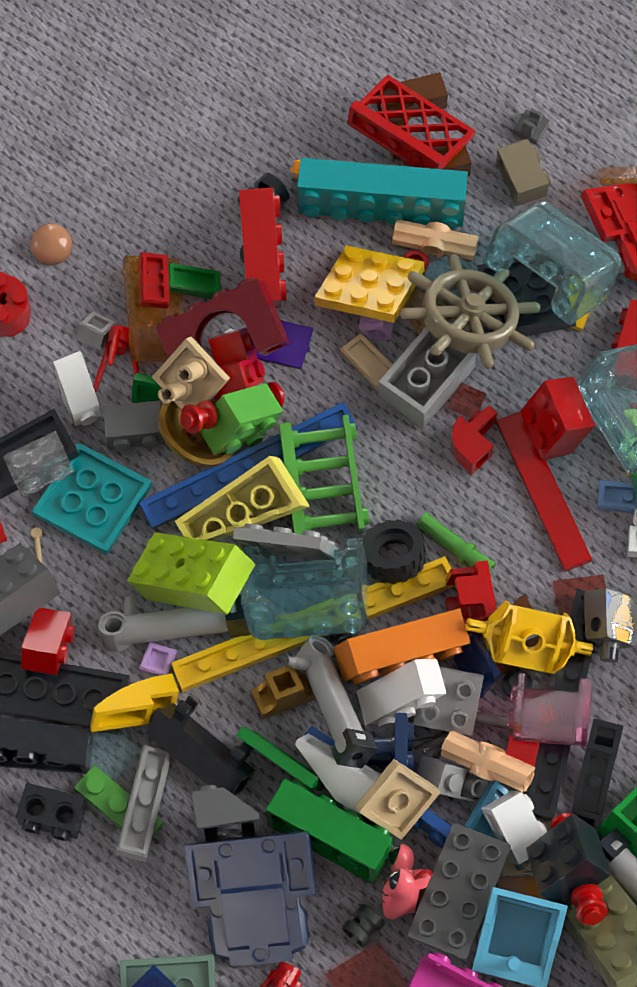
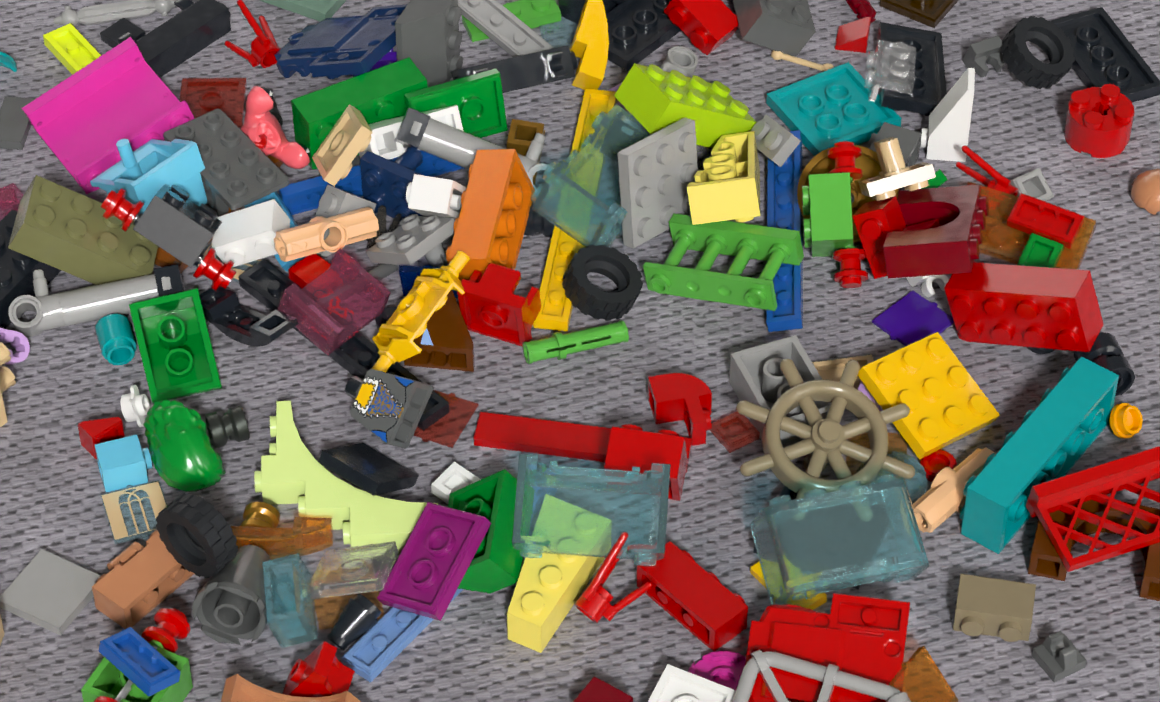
camera: 120 degrees right, 20 degrees down
(168, 507) = (774, 140): none -> light grey hinge

